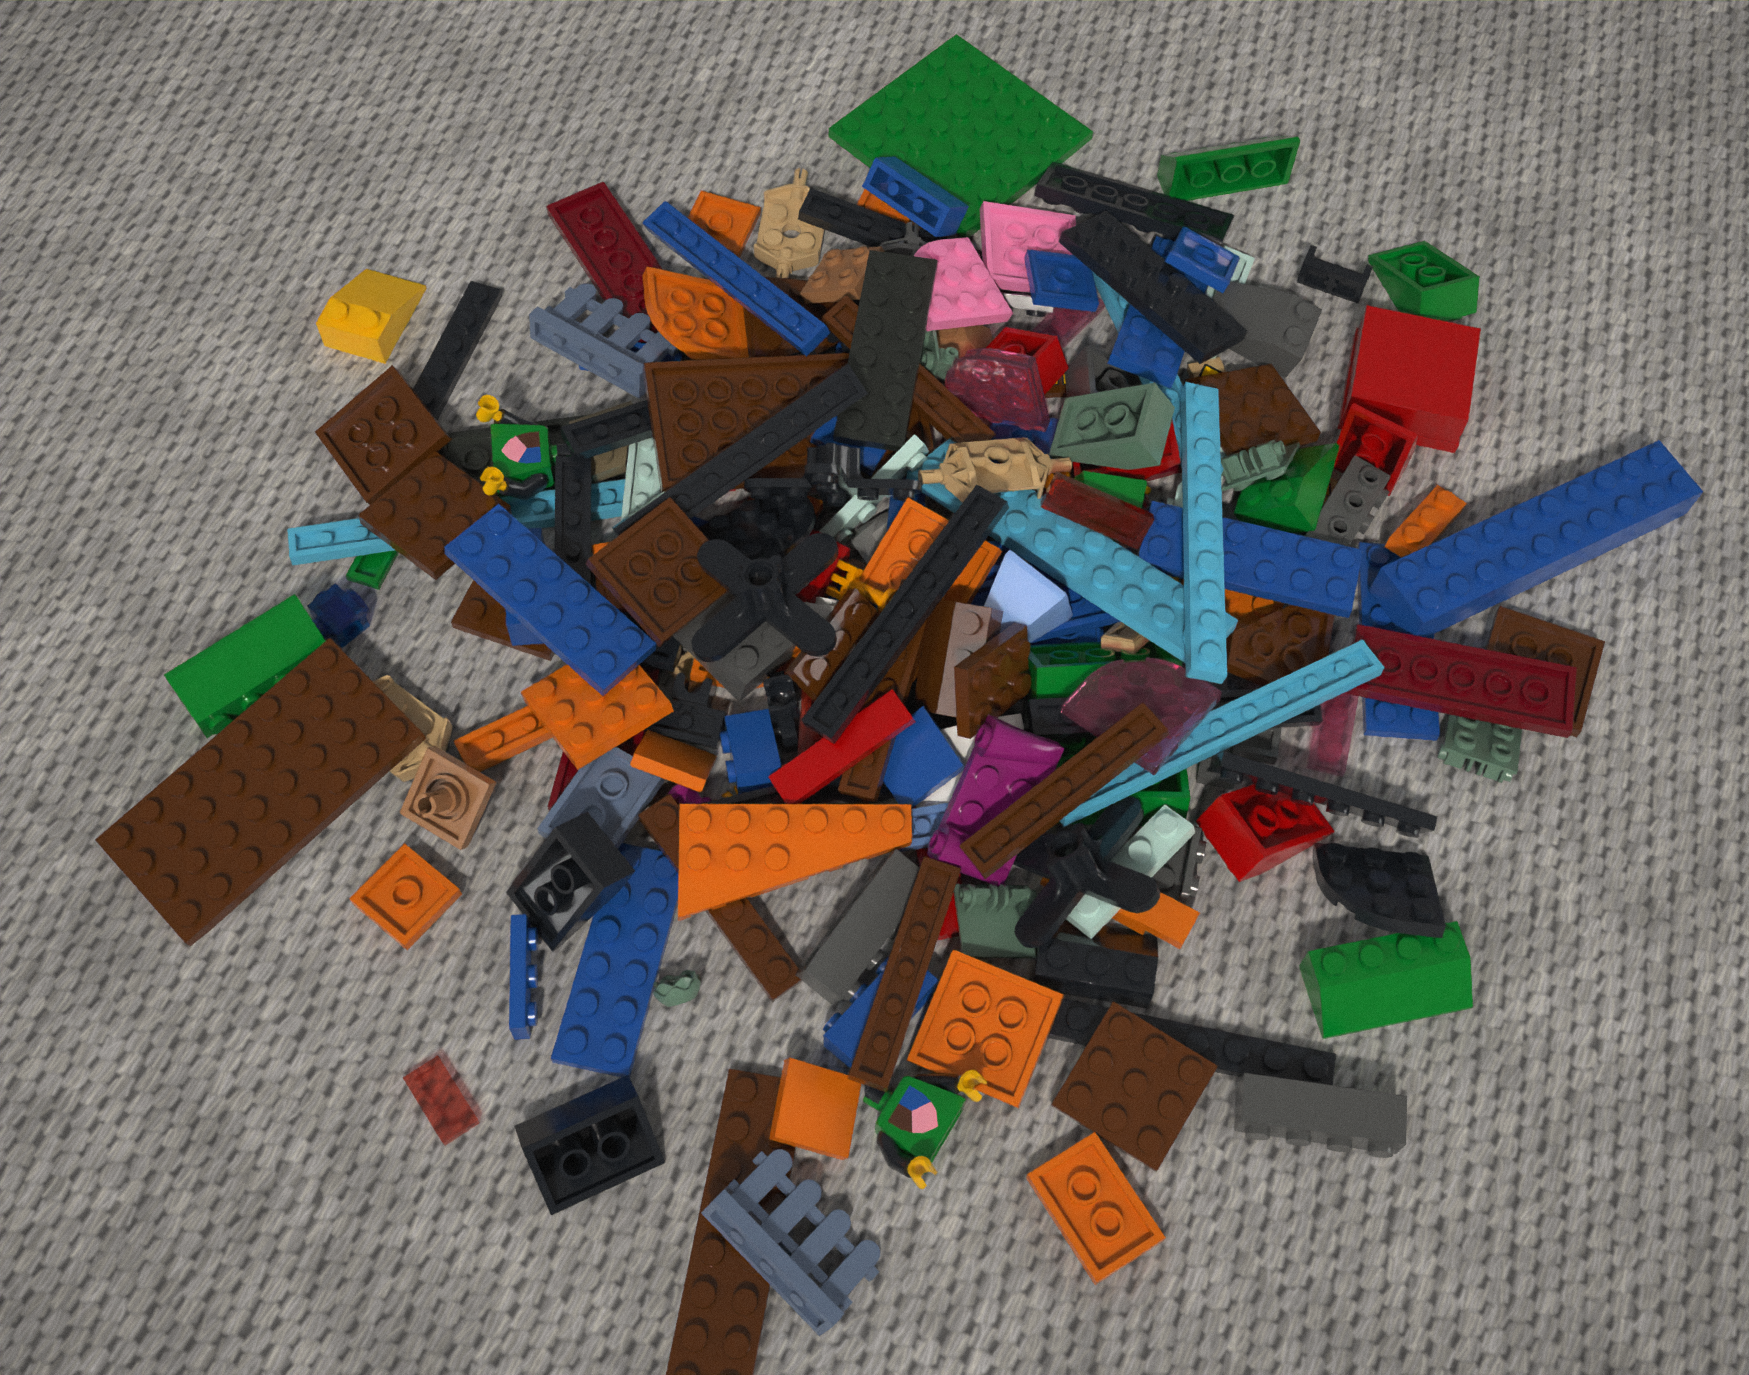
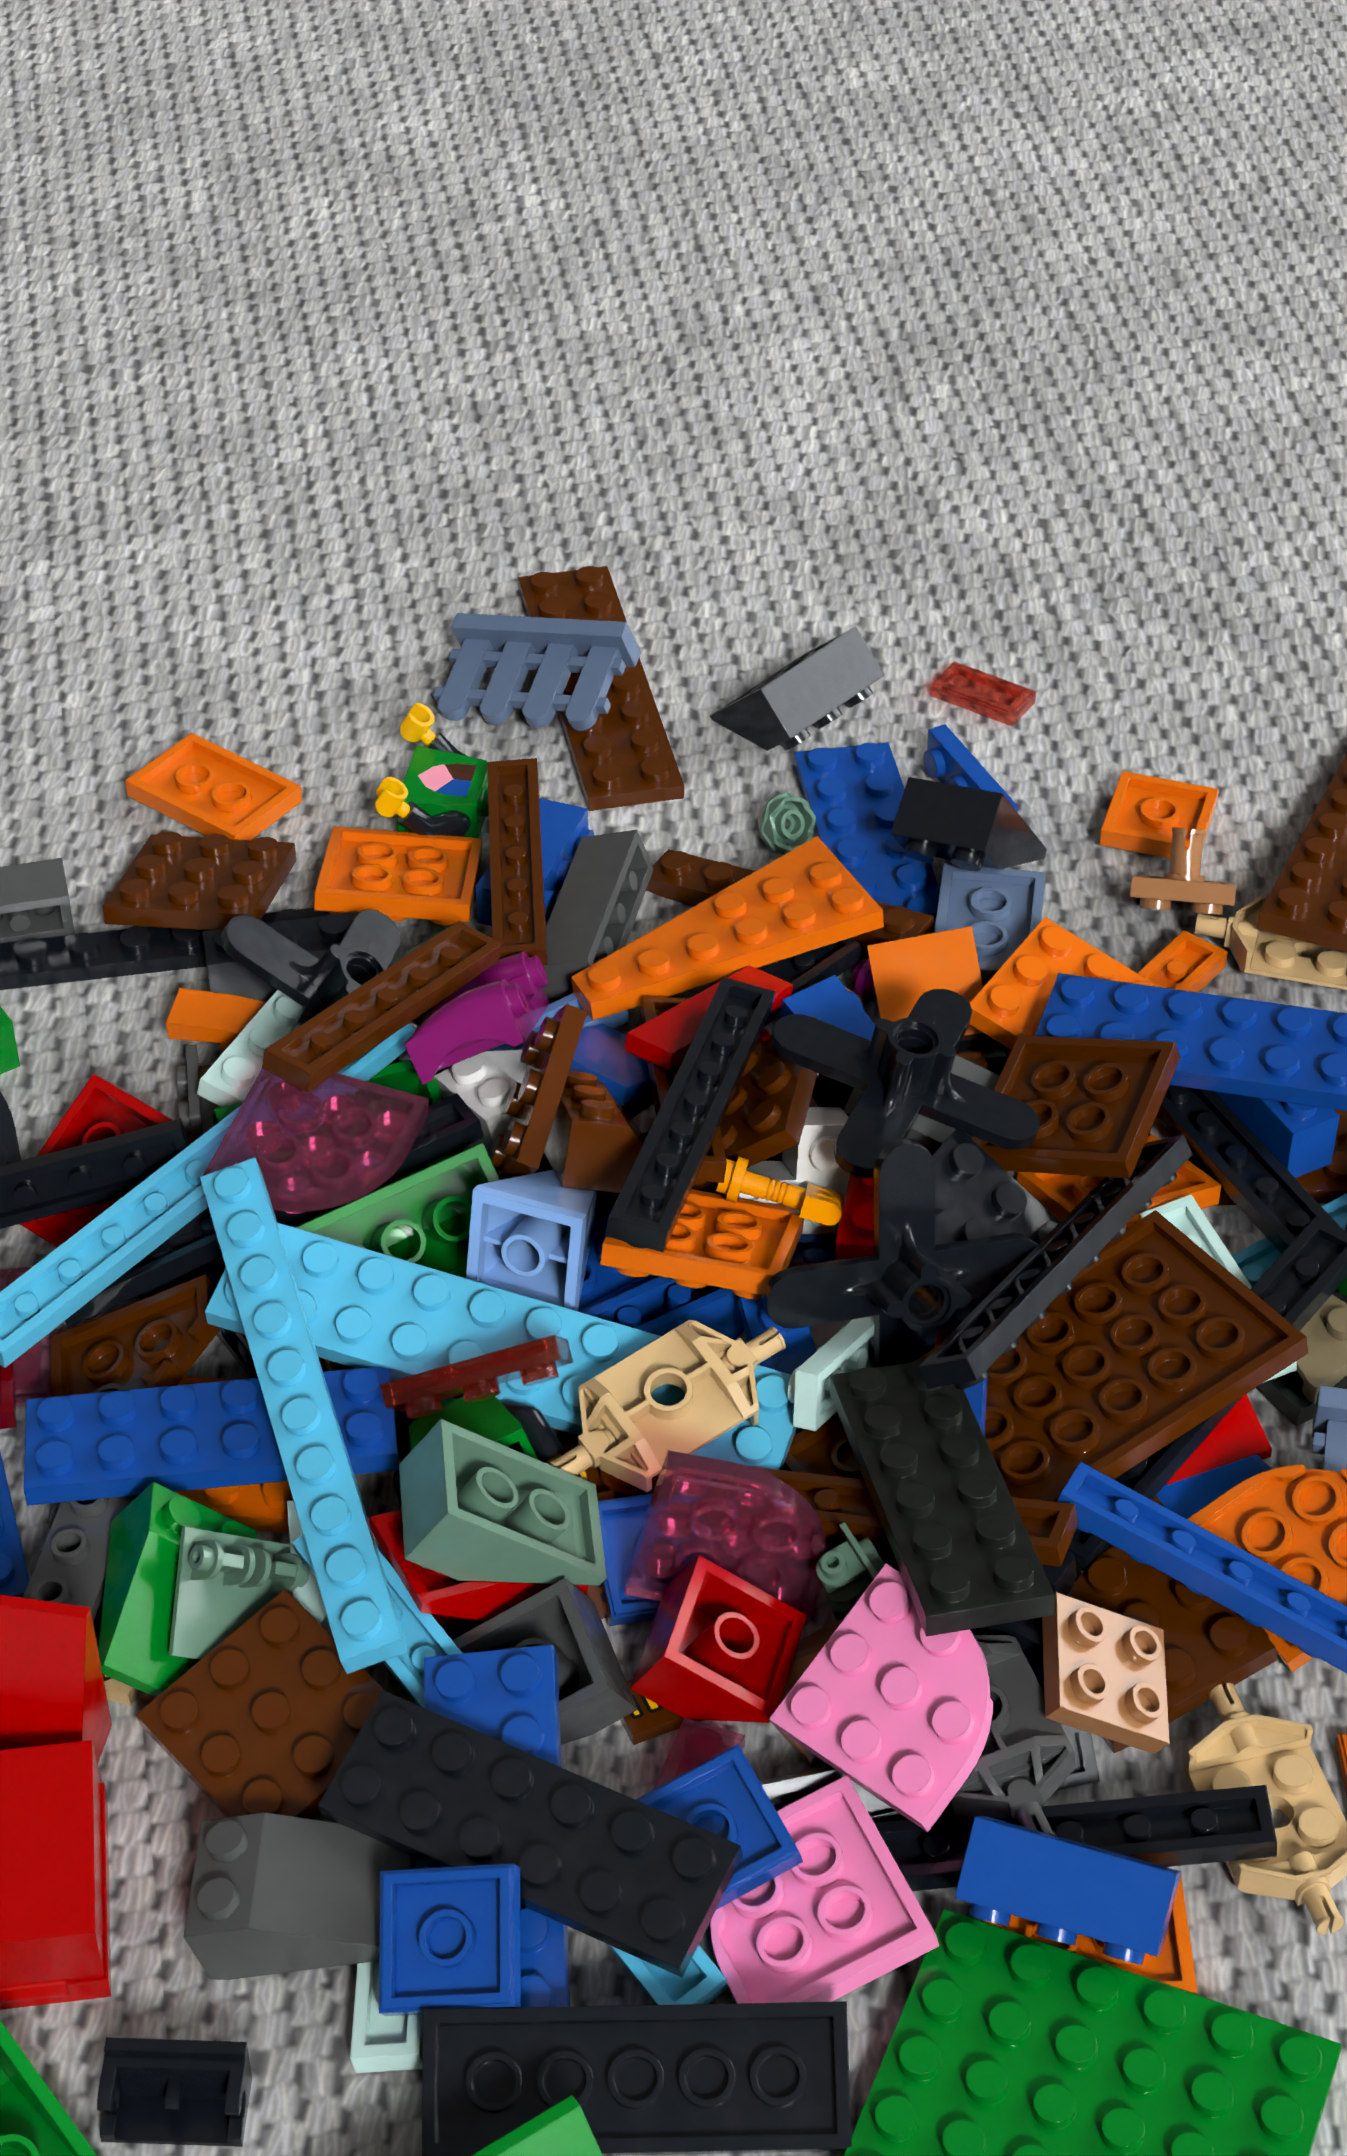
camera: 160 degrees right, 20 degrees down
(815, 1109) = (575, 764): orange tile -> none

